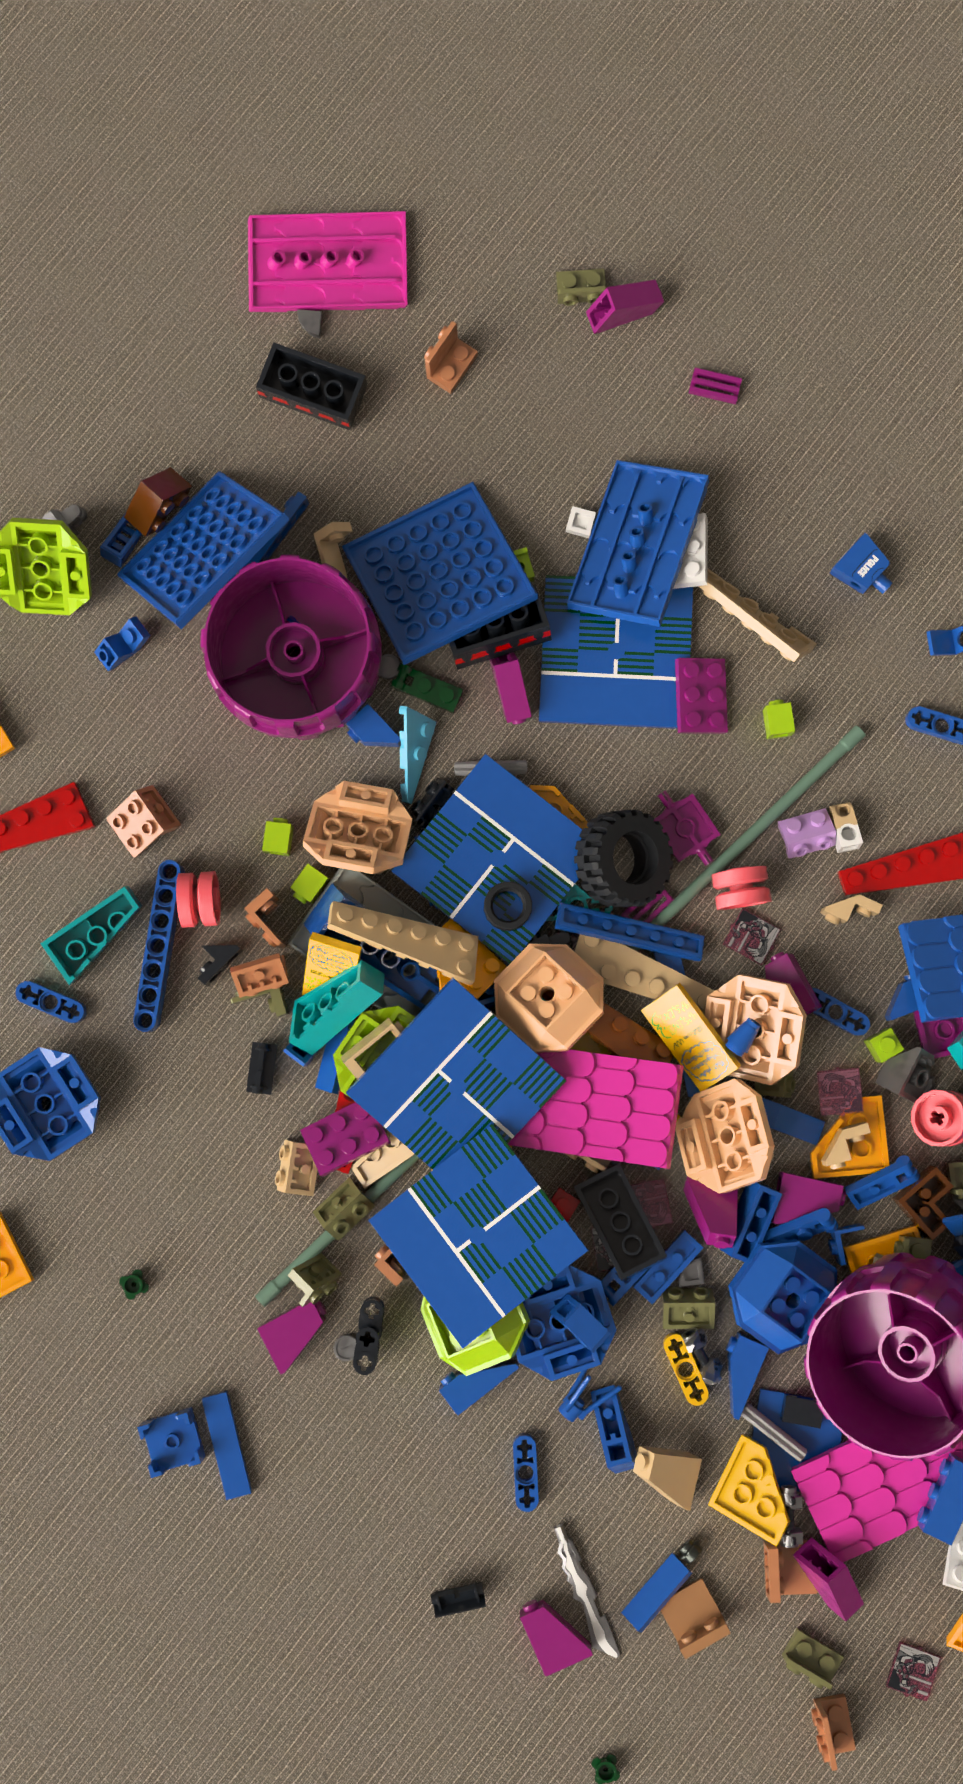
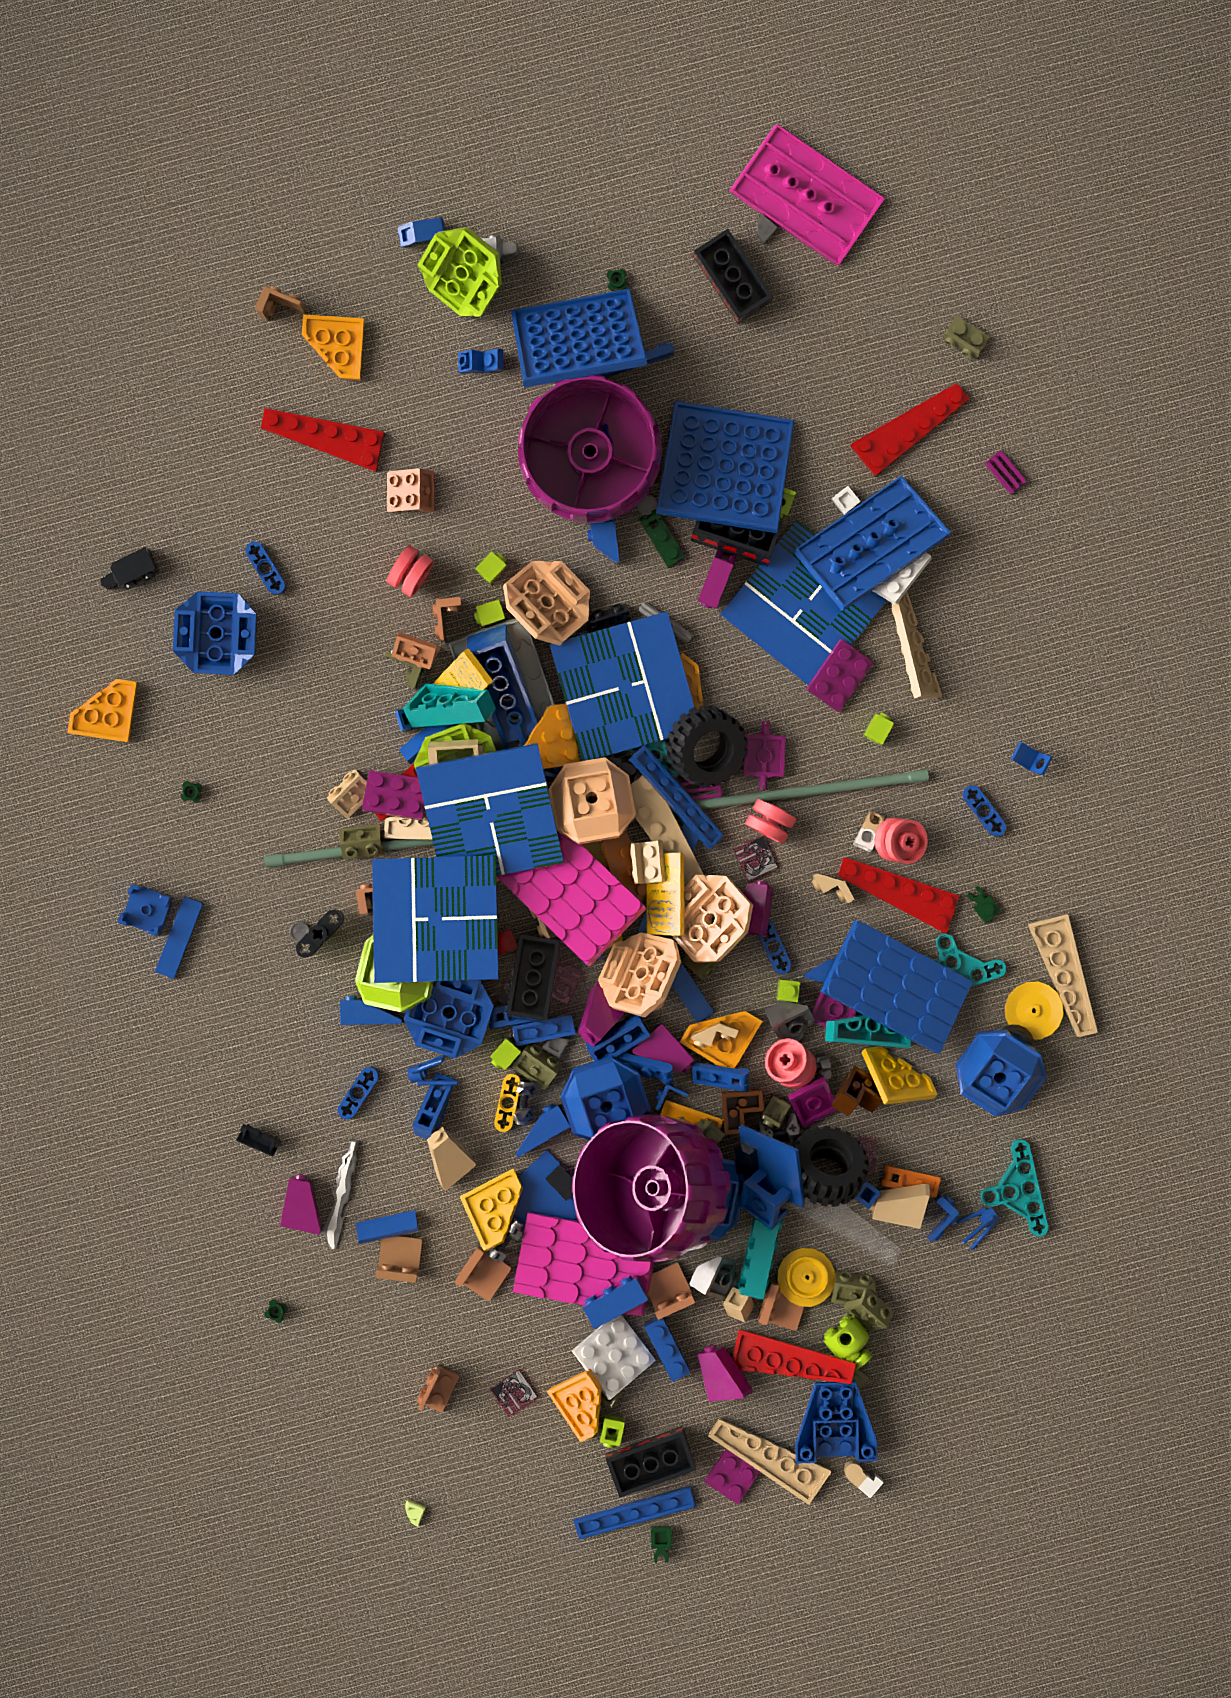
camera: 30 degrees right, 5 degrees up
(87, 936) = (318, 542): teal wedge -> none
(115, 552) = (517, 297): blue slope -> none
(155, 499) = (573, 280): reddish brown brick -> none
(163, 958) = (352, 585): blue beam -> none
(200, 464) = (612, 275): none -> dark green plate
(223, 957) = (399, 620): black slope -> none
(261, 1068) = (373, 712): black hinge -> none
(290, 1332) = (272, 895): magenta slope -> none
(315, 1278) = (312, 872): olive bracket -> none
(327, 543) = (664, 396): tan bracket -> none
(415, 743) = (625, 571): medium azure wing -> none
(430, 945) = (538, 711): tan wing -> none
(448, 359) = (839, 324): nougat bracket -> none
(512, 887) = (608, 707): black tyre -> none
(580, 1323) = (460, 1022): blue slope -> none
(583, 430) = (894, 438): none -> red wing
(624, 304) = (984, 372): magenta slope -> none
(647, 1321) = (505, 1054): none -> lime brick
(650, 1018) = (647, 862): none -> tan bracket
(690, 1550) = (427, 1216): pearl dark grey plate -> none
(743, 1037) = (696, 918): blue cone -> none
(774, 1432) = (534, 1181): light grey axle -> none
(807, 833) = (842, 817): lavender bracket -> none
(812, 1658) = (456, 1338): olive bracket -> none
(829, 1578) = (502, 1296): magenta slope -> none
(840, 1091) = (737, 999): clear pink piece -> none
(863, 566) = (1011, 667): blue torso -> none
(885, 812) = (901, 840): none -> coral wheel

